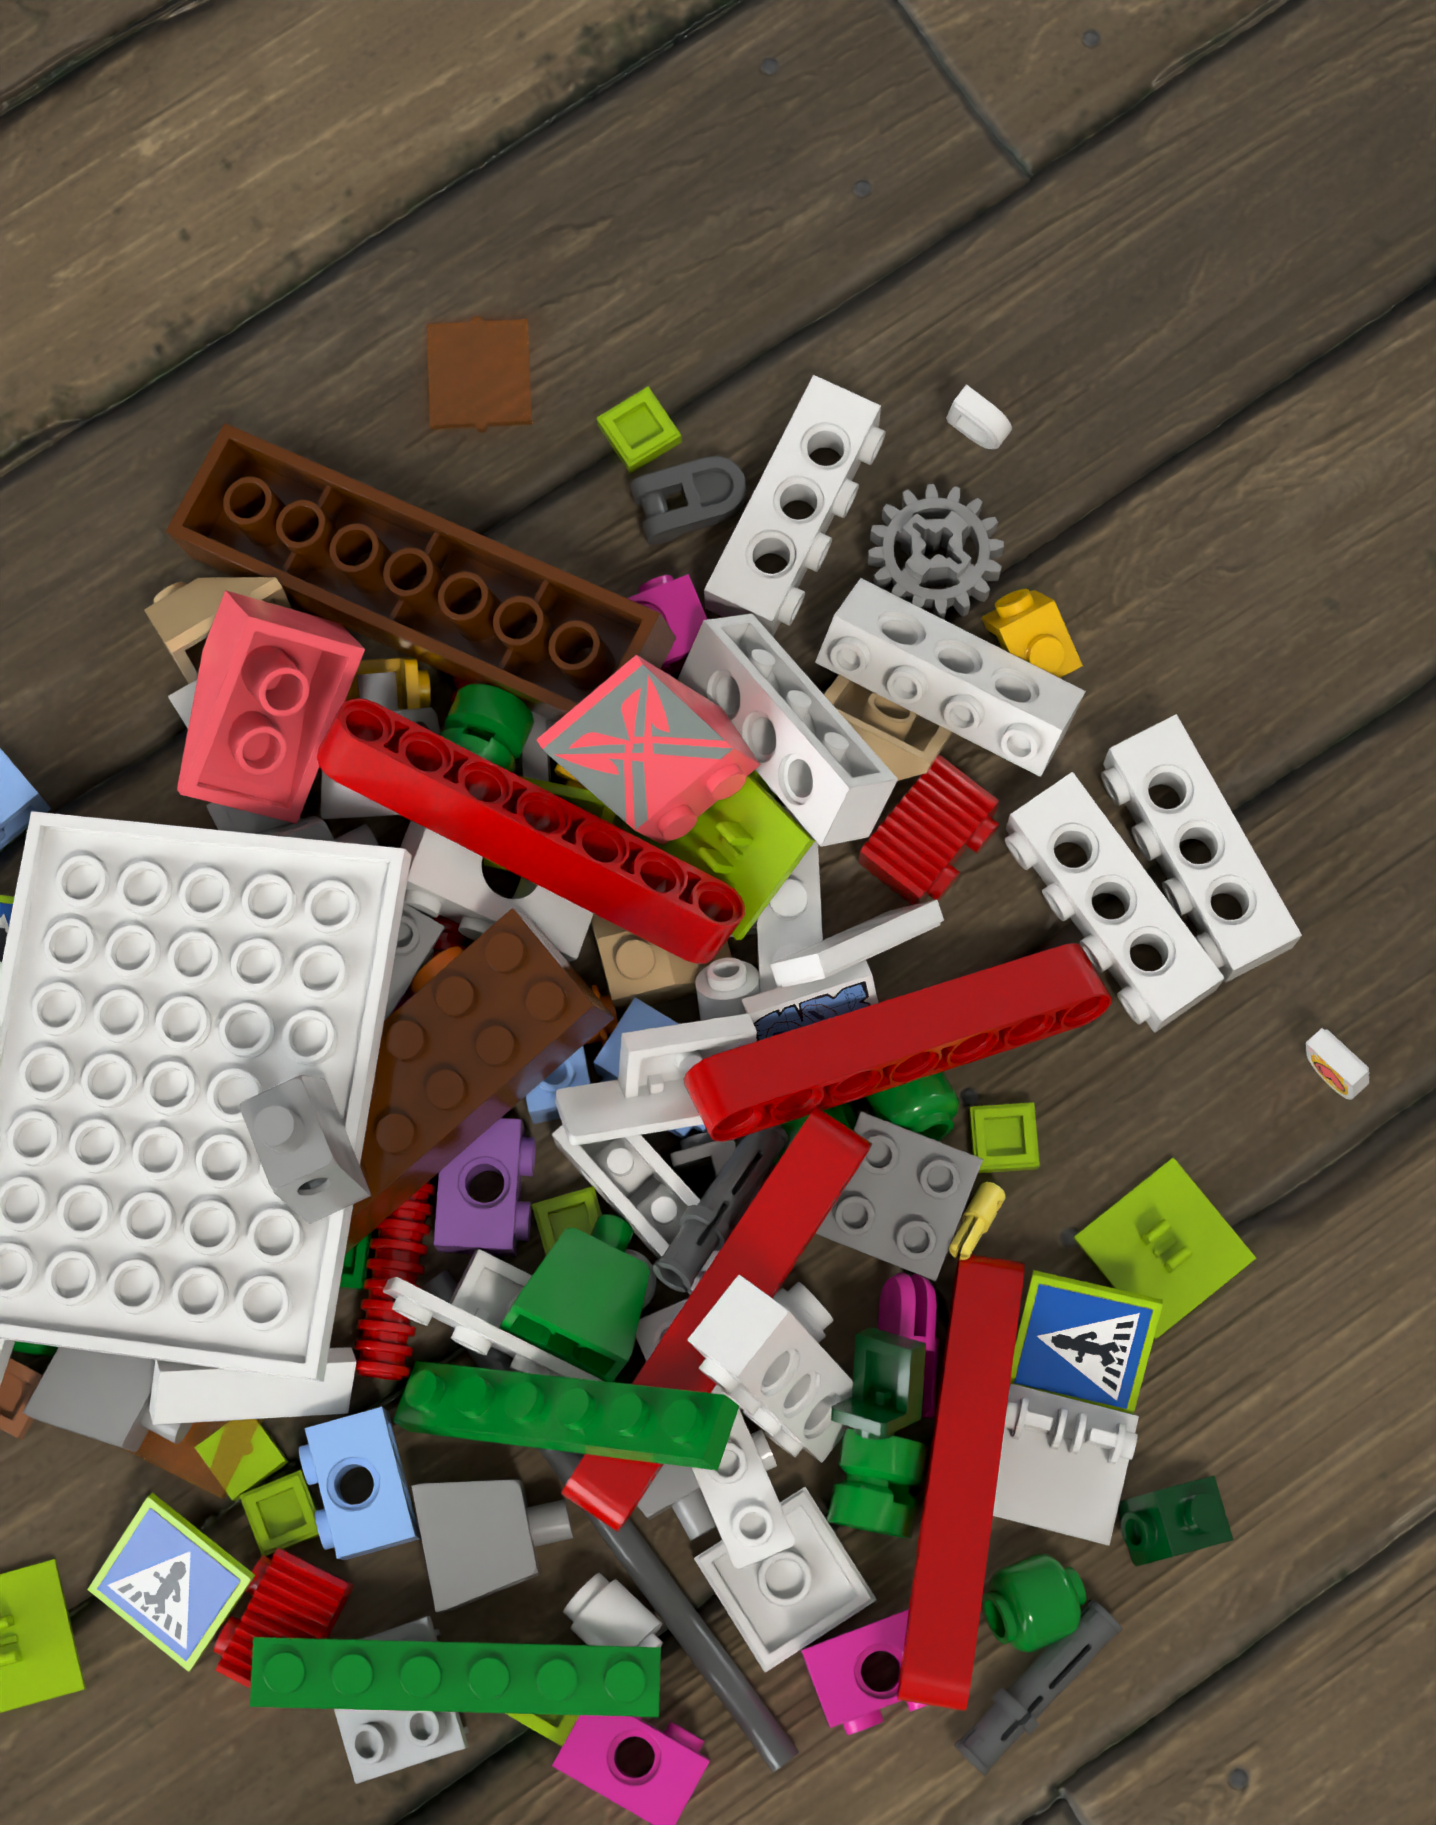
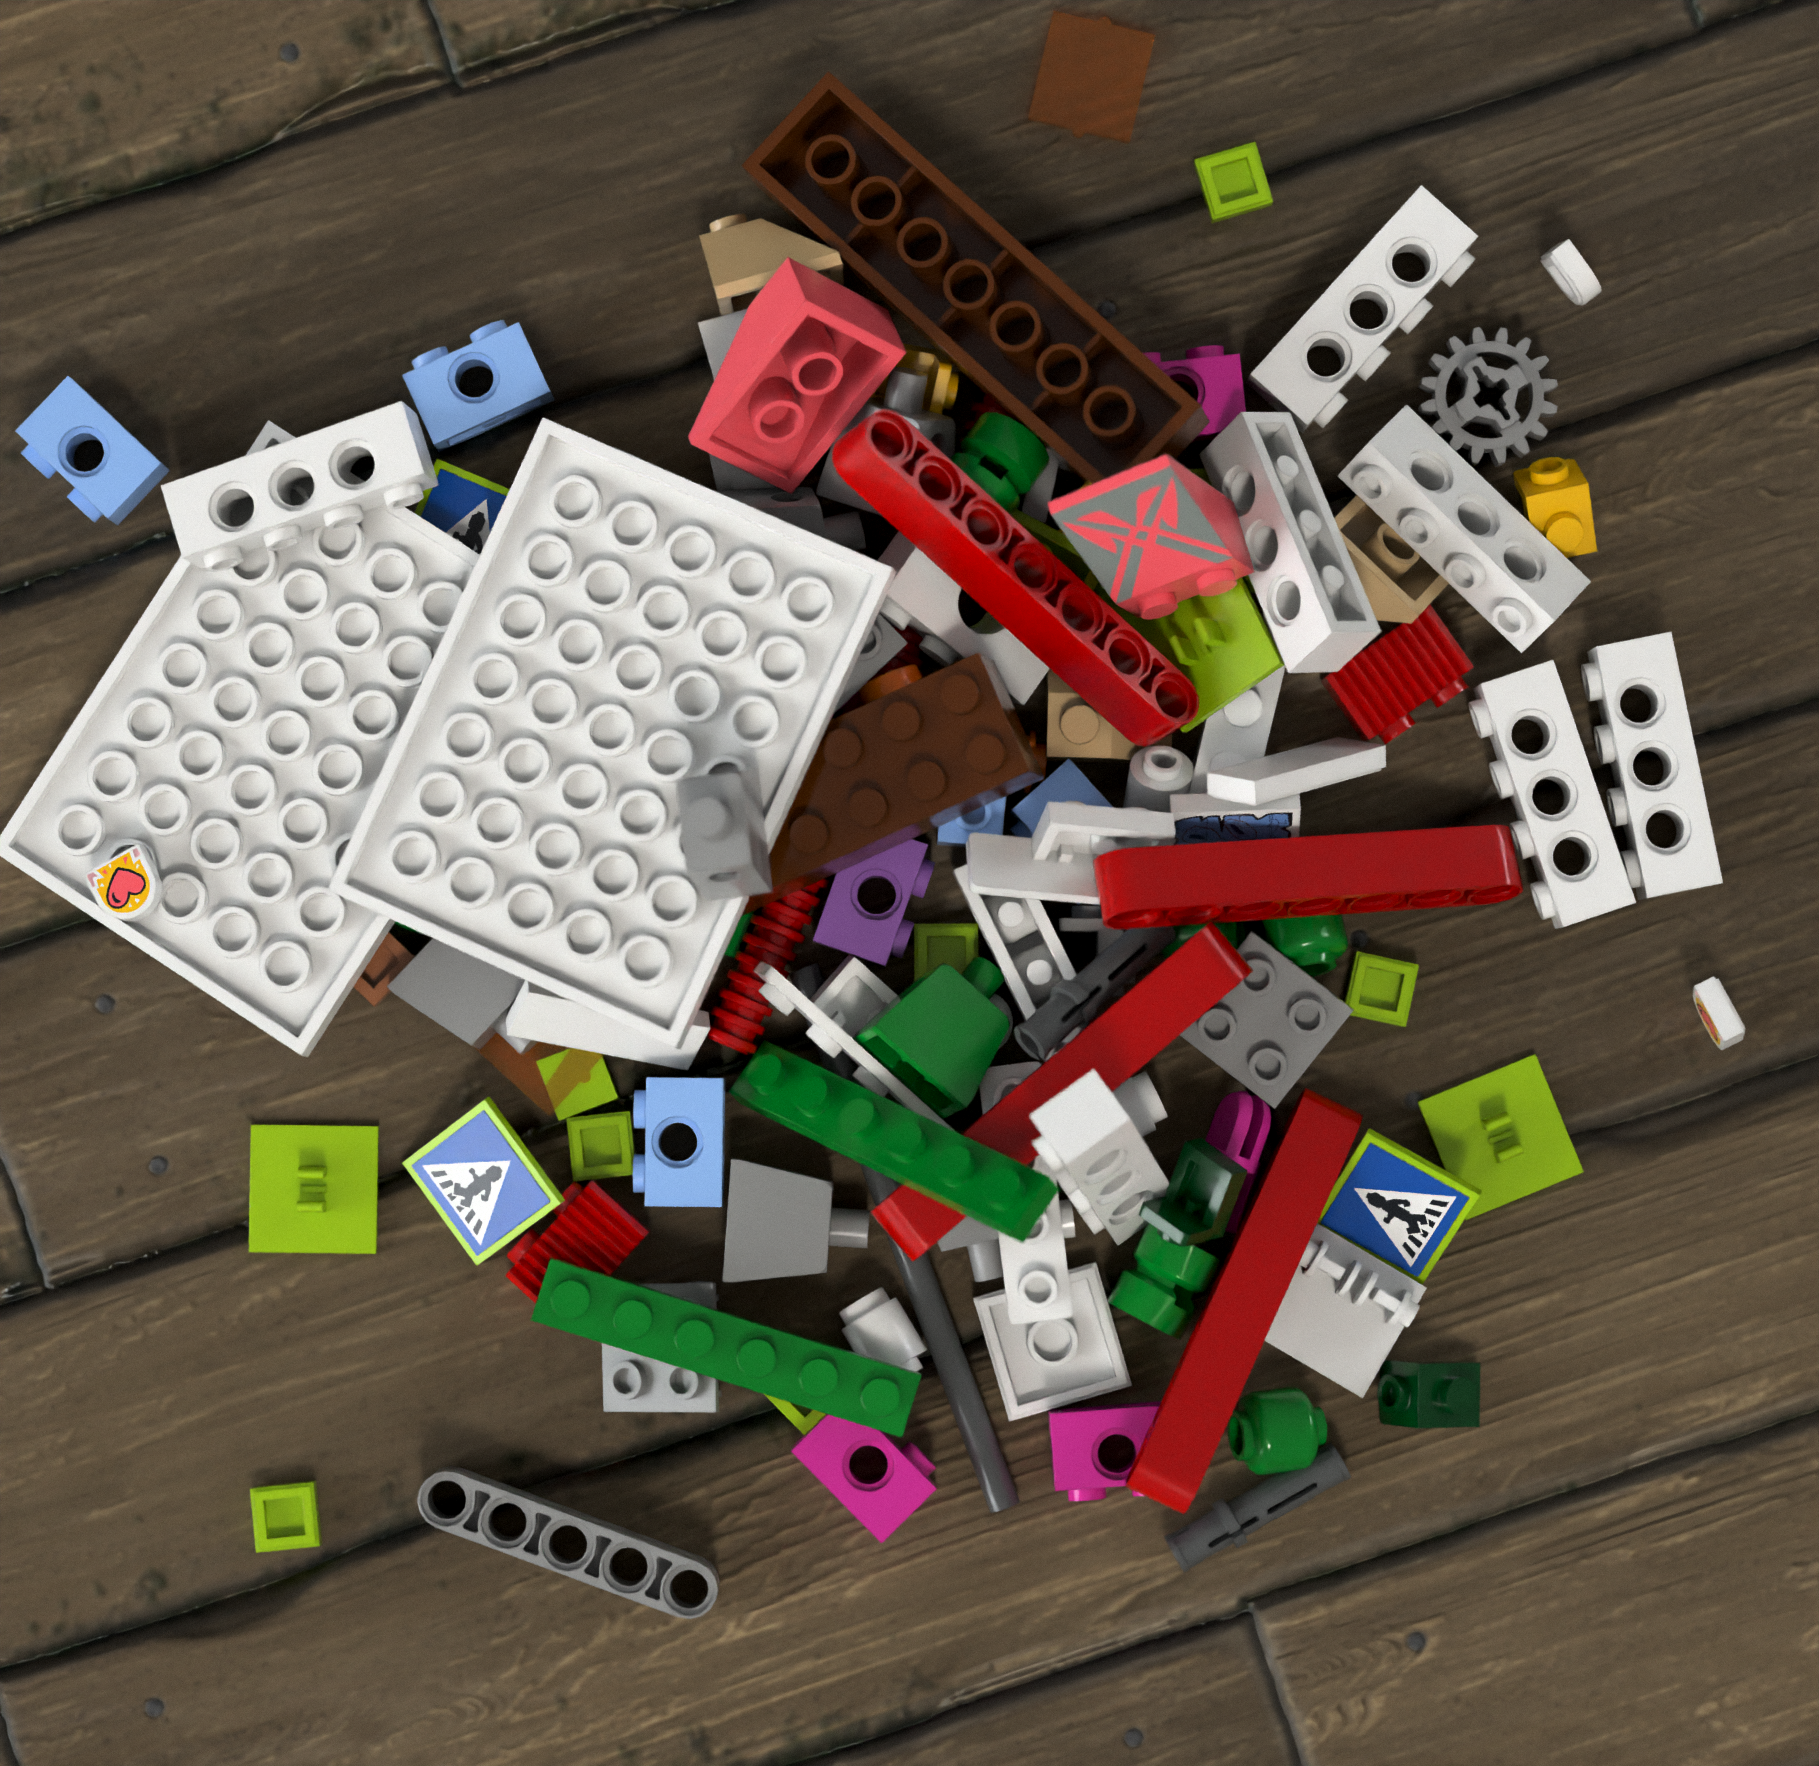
camera: 10 degrees right, 10 degrees up
(711, 488) = (1286, 268): dark grey plate -> none
(977, 1219) = (1331, 1060): light yellow pin -> none

